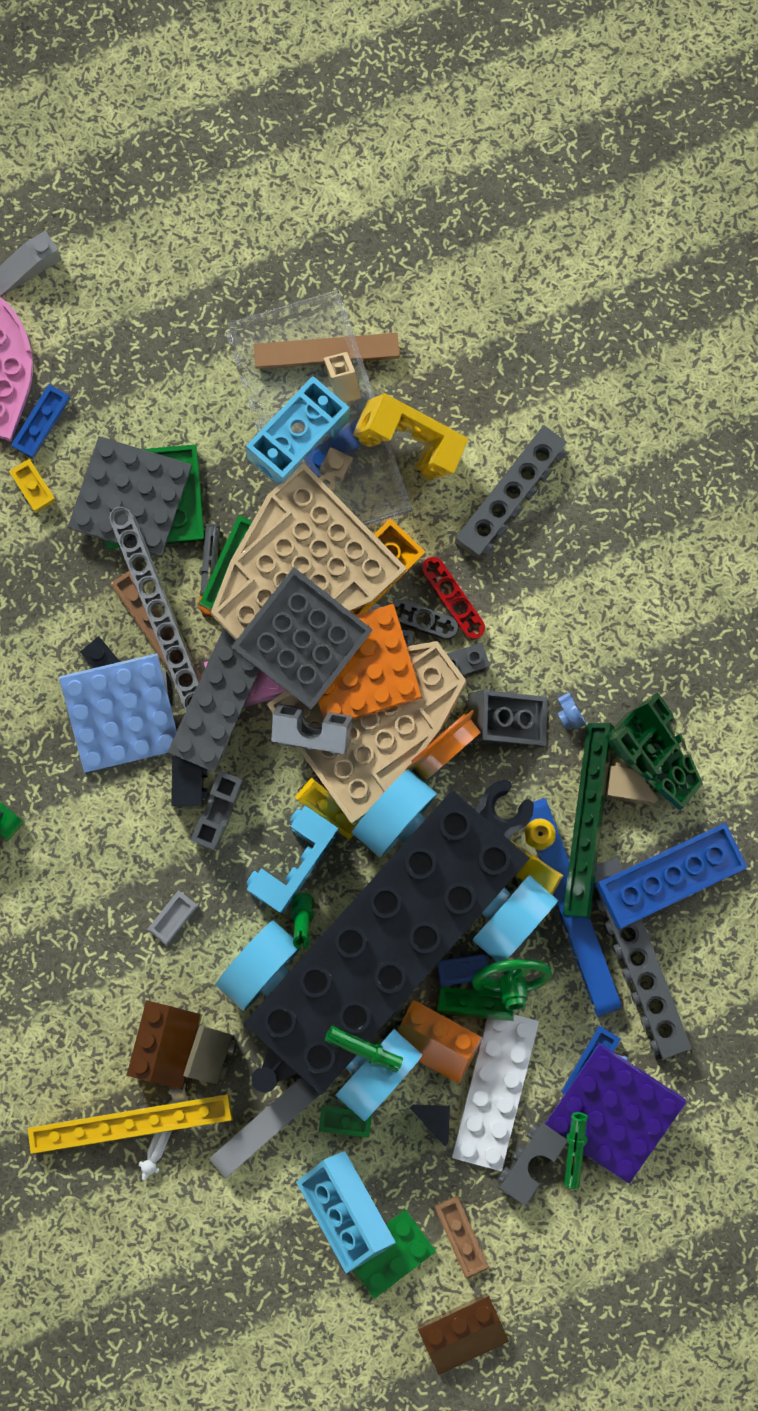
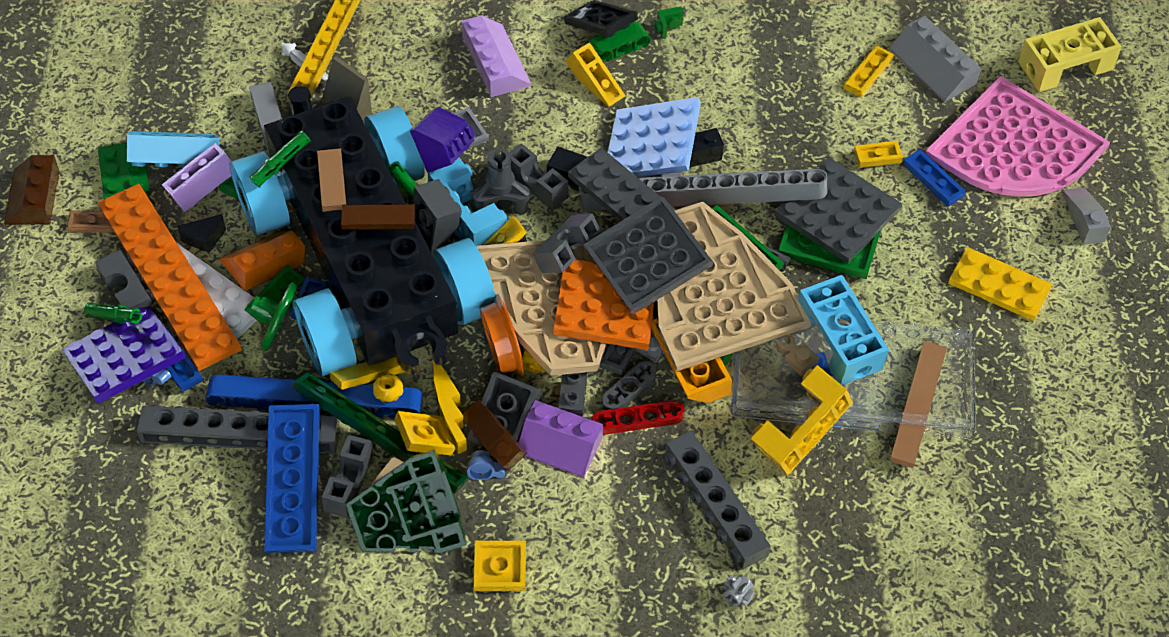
camera: 115 degrees right, 25 degrees down
(48, 814) = (594, 75): none -> yellow slope
(64, 933) = (494, 55): none -> lavender slope
(147, 321) = (1000, 283): none -> yellow plate
(163, 1044) = (386, 83): reddish brown slope -> none
(229, 917) = (441, 138): none -> dark purple slope
(261, 847) = (501, 184): none -> dark grey wheel
(330, 880) = (435, 213): none -> dark grey slope
(342, 377) = (883, 390): tan slope -> none
(375, 975) = (331, 179): none -> medium nougat tile
(375, 1157) = (199, 177): none -> lavender brick
(400, 904) = (378, 217): none -> reddish brown tile
(503, 1124) = (169, 277): none -> orange plate
(513, 655) = (560, 438): none -> medium lavender slope
(532, 769) = (448, 402): none -> yellow slope
(541, 714) = (494, 435): none -> reddish brown slope
(568, 778) = (424, 433): none -> yellow plate
(594, 439) = (738, 590): none -> light grey gear
(644, 828) = (354, 464): none -> dark grey arch
(663, 653) = (500, 566): none -> yellow plate

